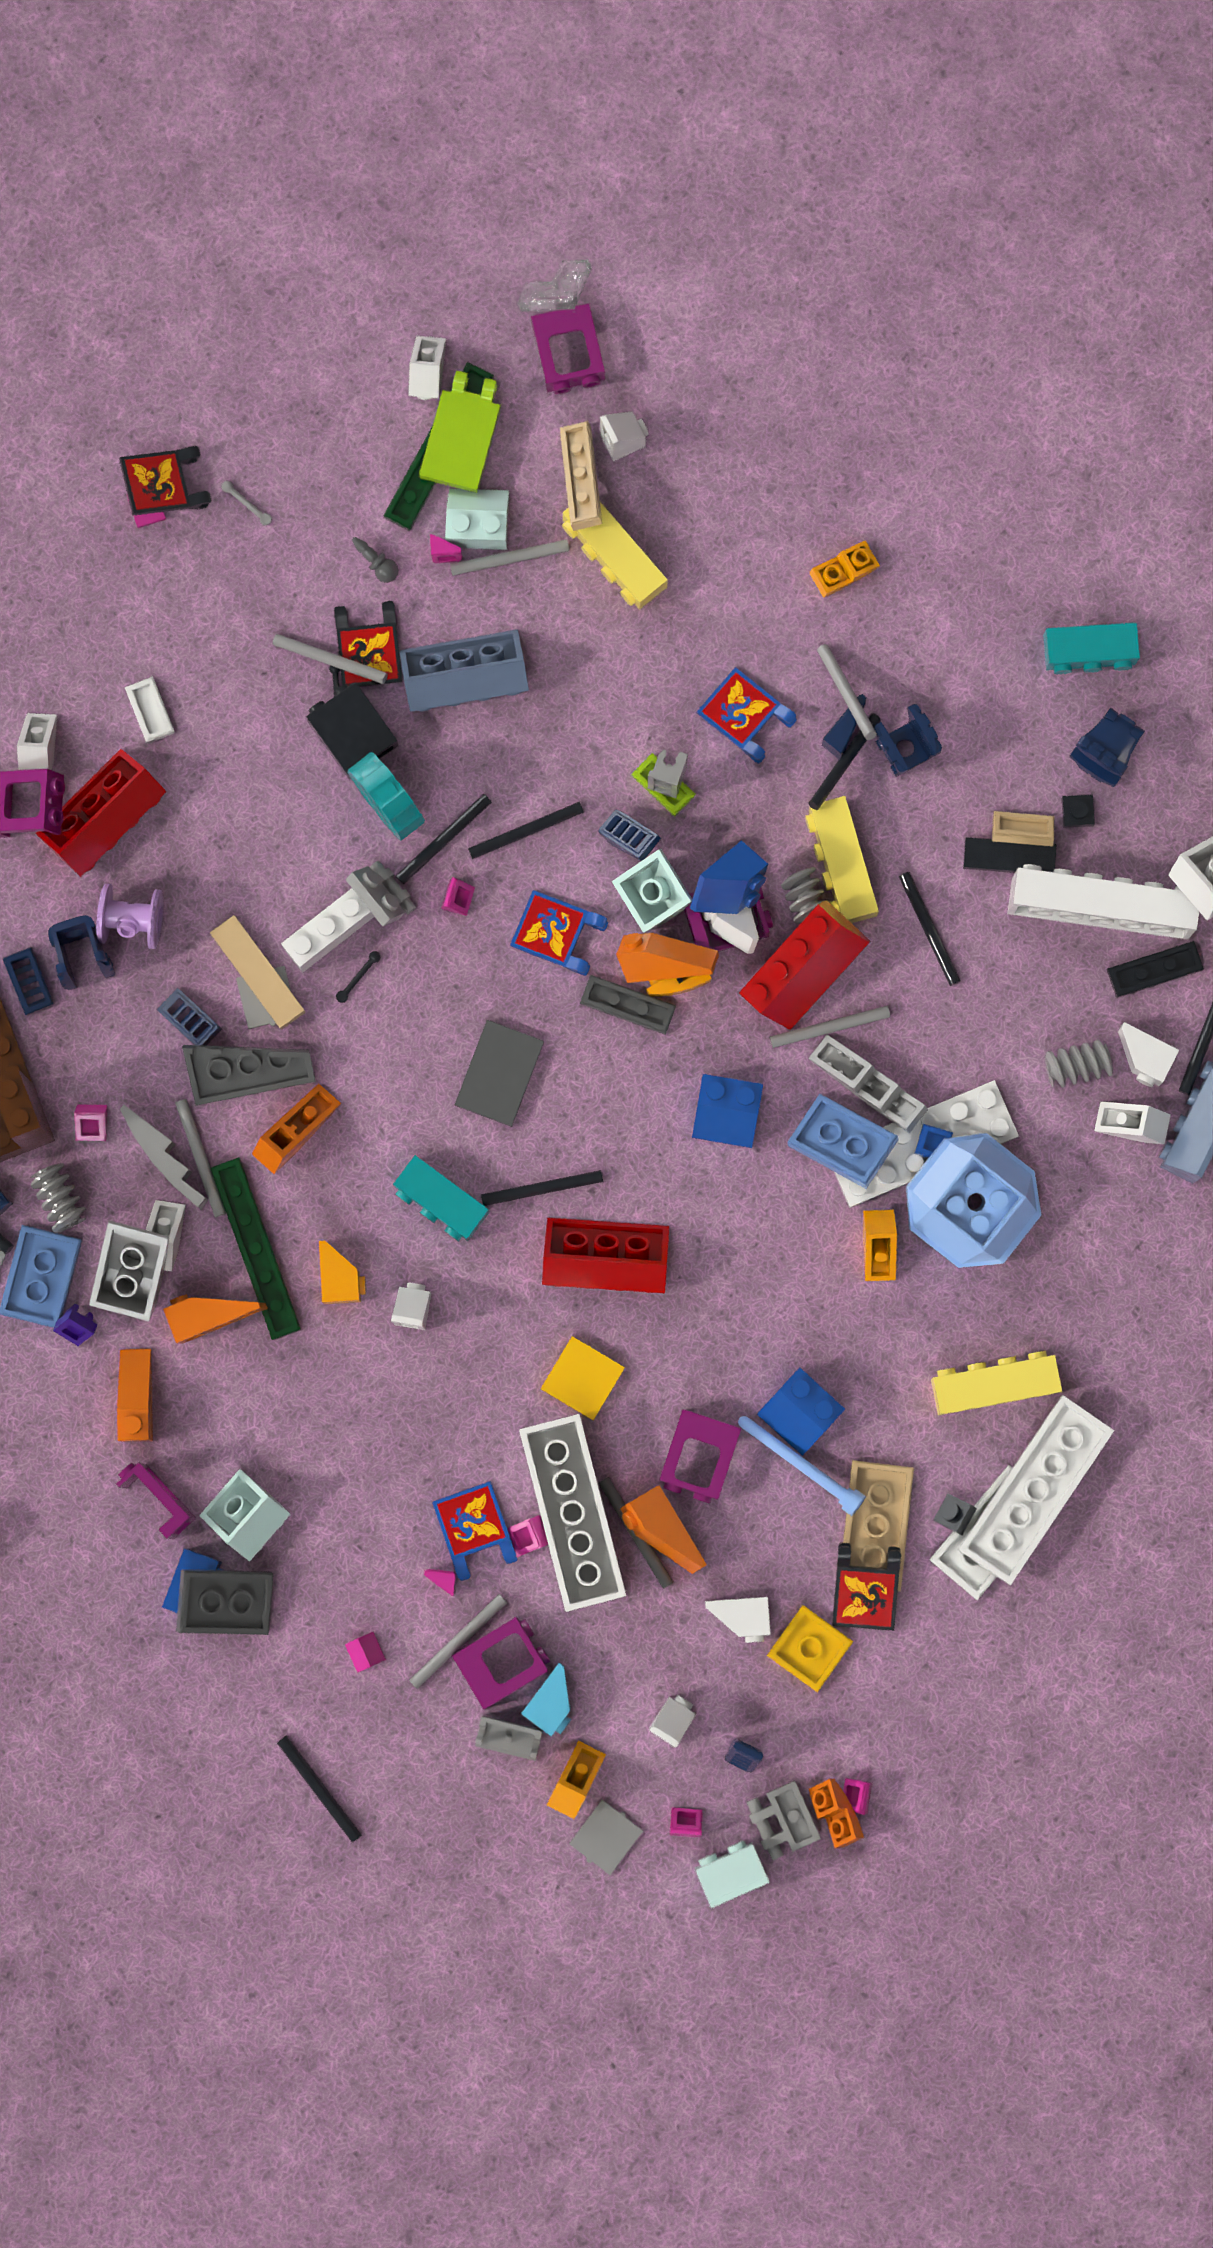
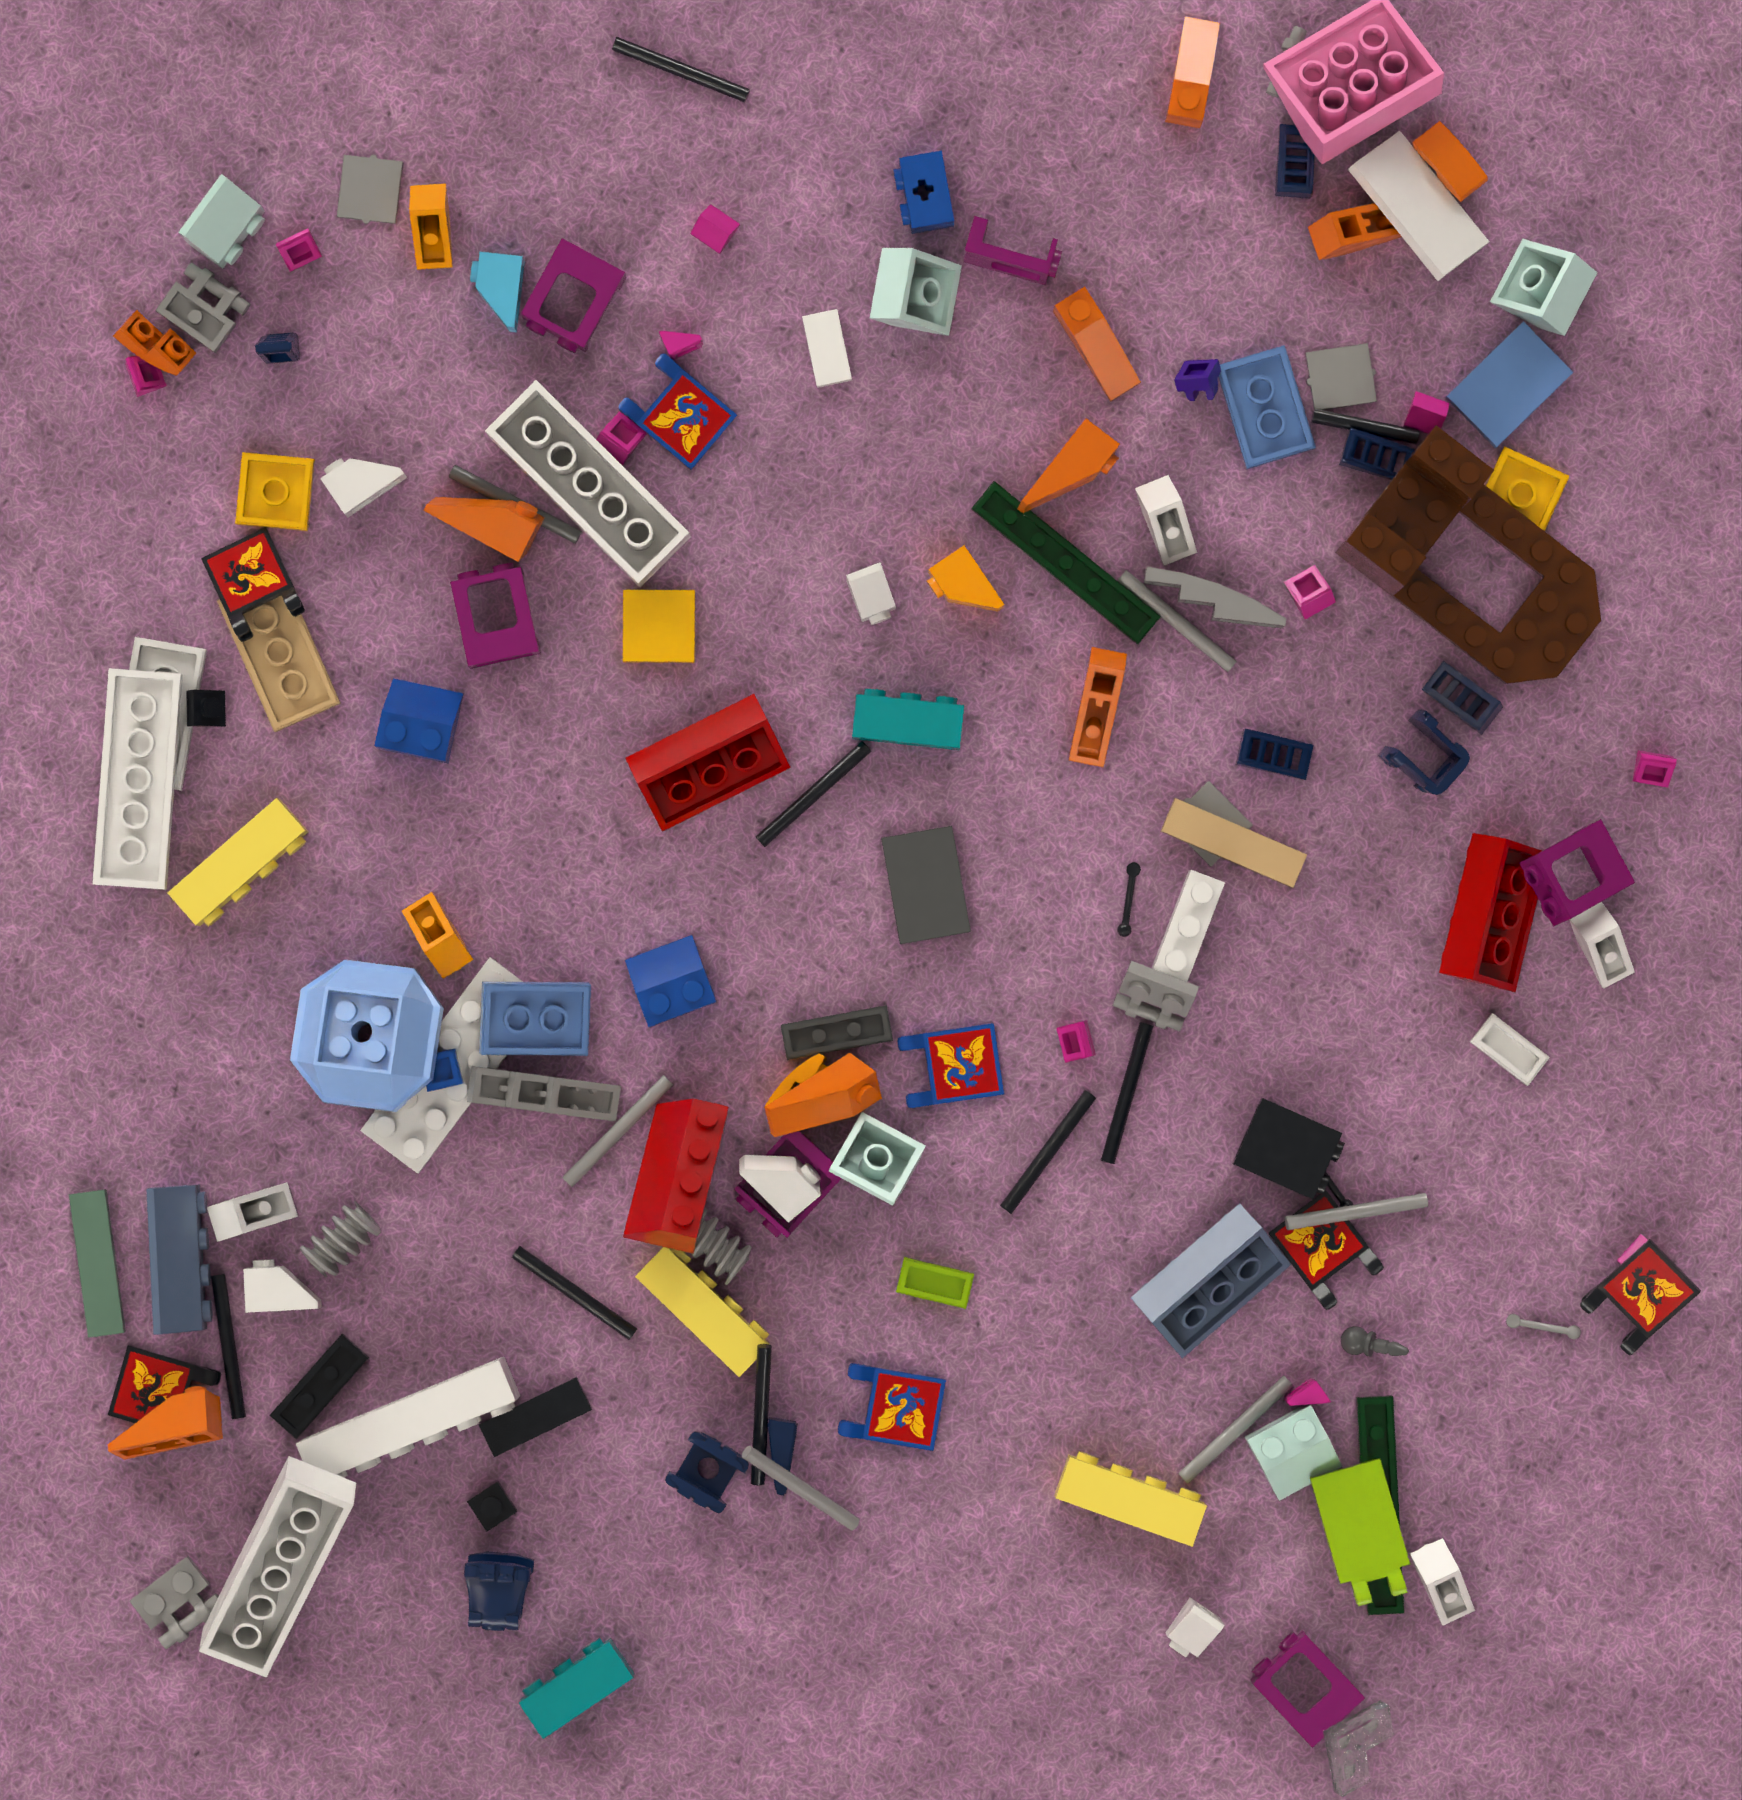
camera: 145 degrees right, 5 degrees up
(57, 1198) = (1295, 495): light grey piece -> none
(129, 918) = (1395, 818): lavender hose -> none
(130, 1271) = (1174, 459): light grey slope -> none
(224, 1602) = (882, 192): dark grey tile -> none
(234, 1072) = (1190, 729): dark grey wing -> none
(335, 1512) = (827, 348): none -> white tile
(386, 796) = (1208, 1096): teal connector -> none
(458, 1641) = (629, 293): light grey bar -> none
(508, 1738) = (522, 229): light grey hinge -> none
(580, 476) = (1211, 1556): tan tile -> none
(627, 833) = (937, 1205): dark blue slope -> none
(668, 778) = (932, 1284): light grey hinge -> none
(673, 1720) = (368, 337): white slope -> none
(731, 882) = (799, 1211): blue slope -> none
(844, 569) = (881, 1622): light orange slope -> none
(848, 1498) = (320, 660): light blue piece -> none
(1023, 828) = (537, 1453): tan tile -> none

